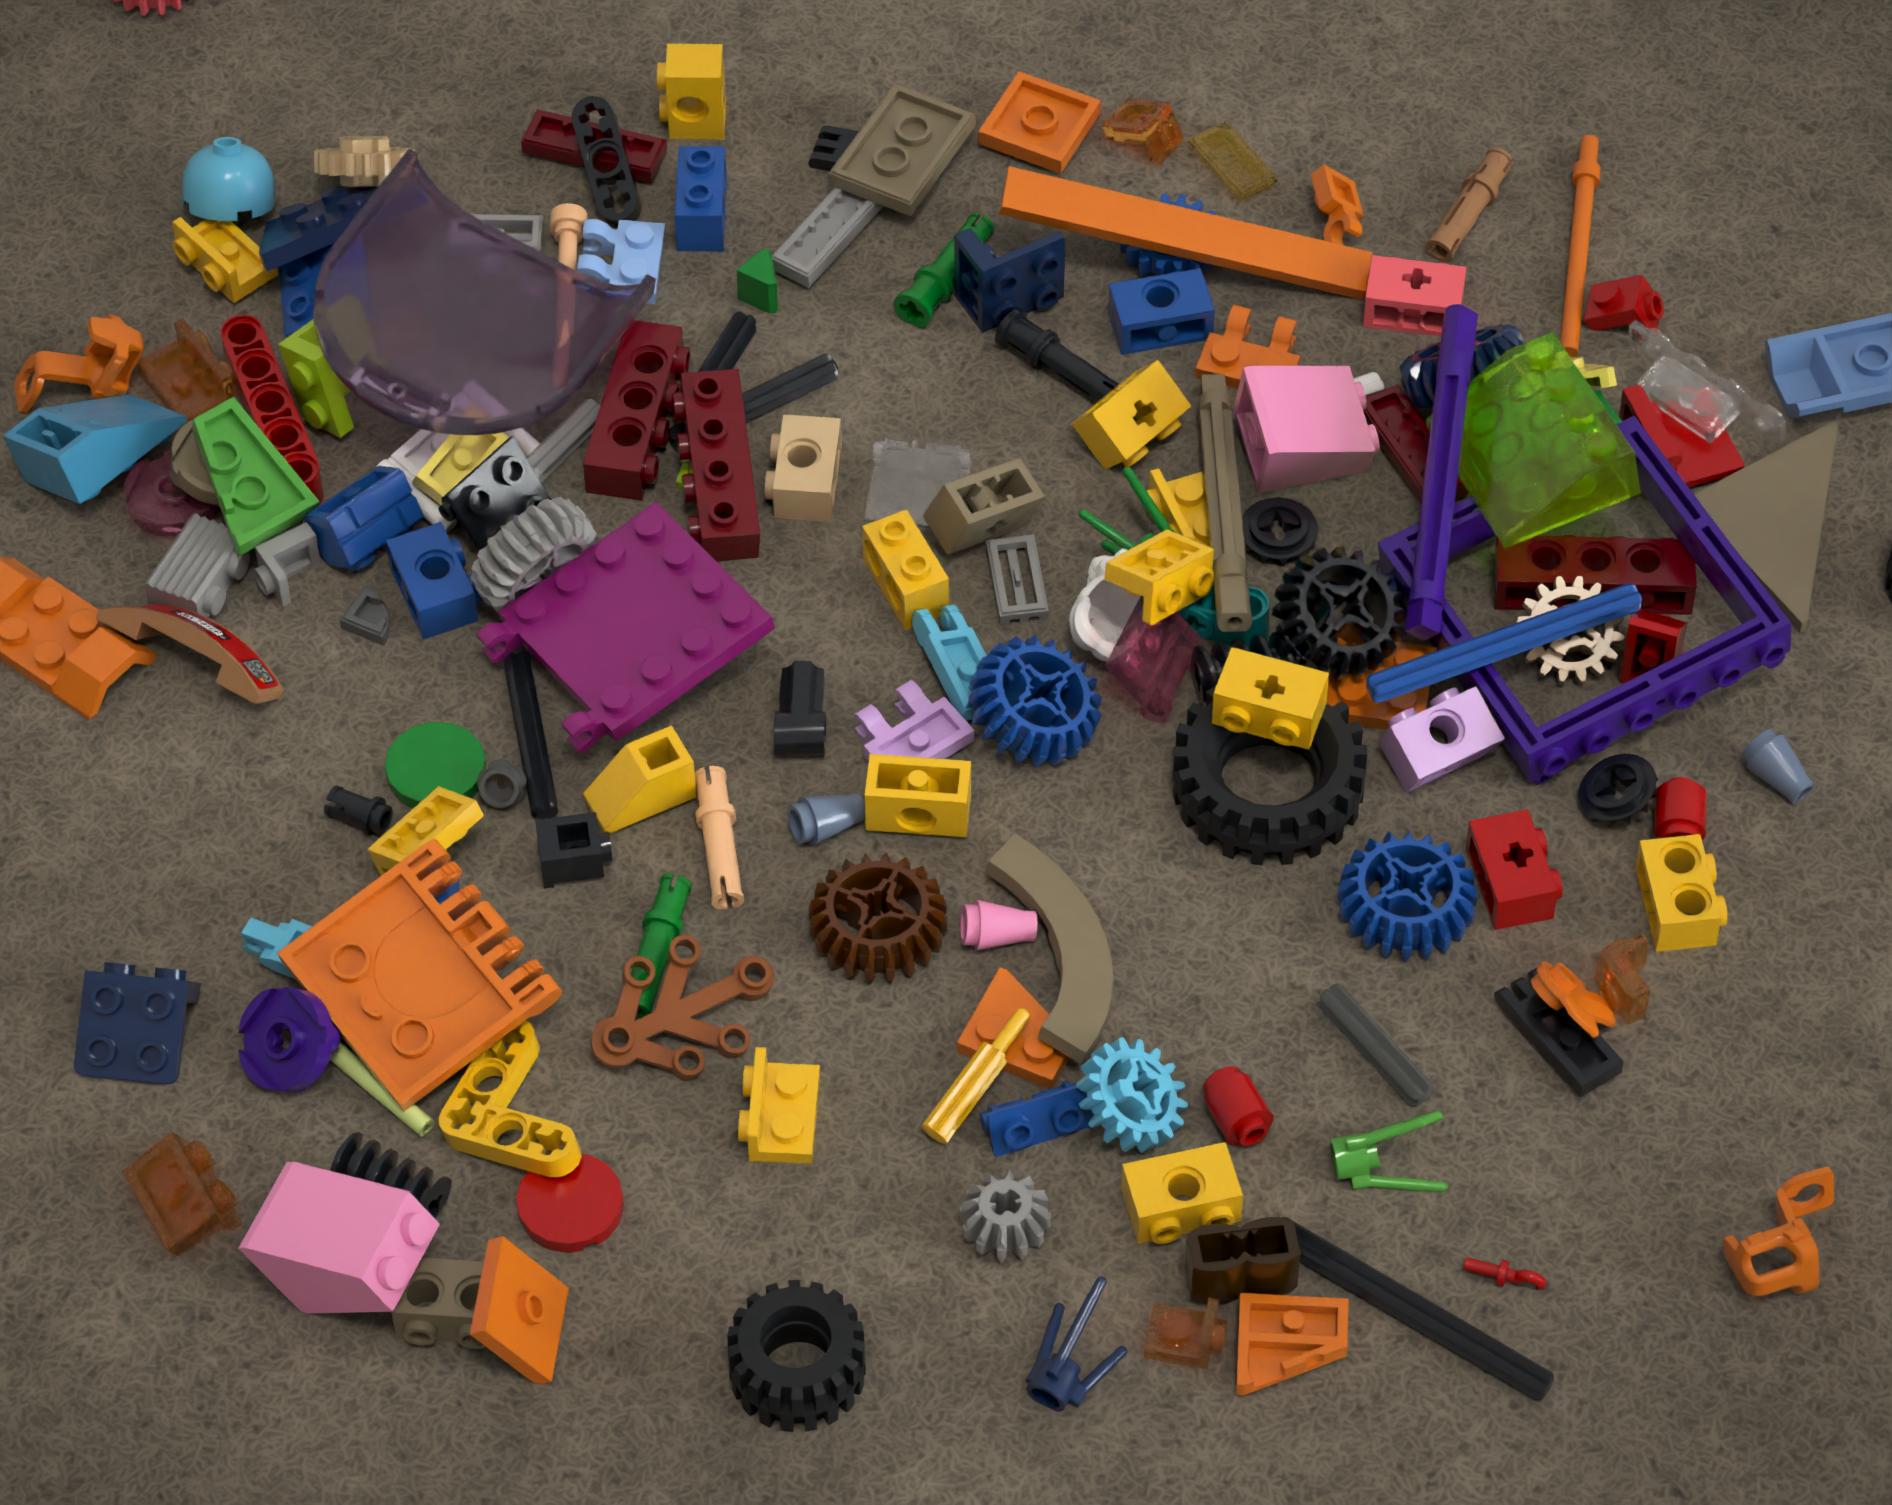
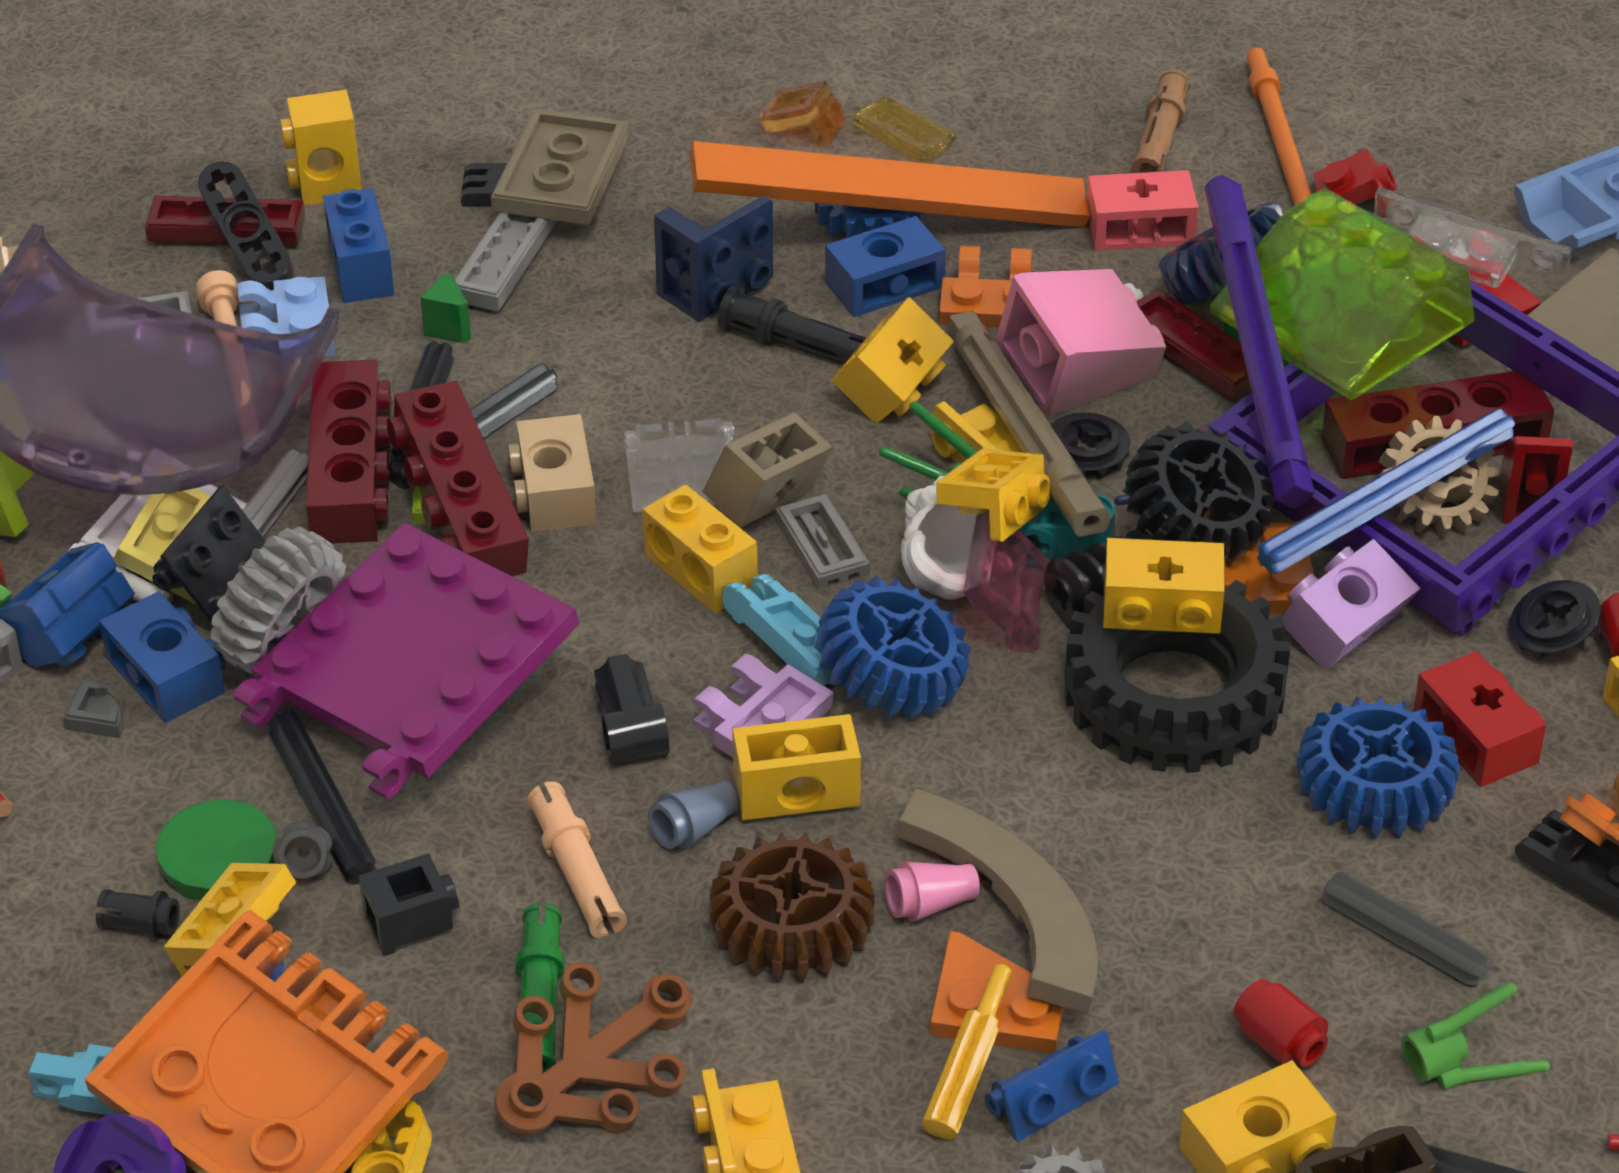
camera: 15 degrees left, 10 degrees down
(642, 781) = (473, 811): yellow slope -> none
(934, 282) = (631, 284): green pin -> none
(1039, 122) = (687, 115): orange plate -> none
(1132, 1095) = (1160, 1034): medium azure gear -> none
(1339, 201) = (1026, 143): orange plate -> none

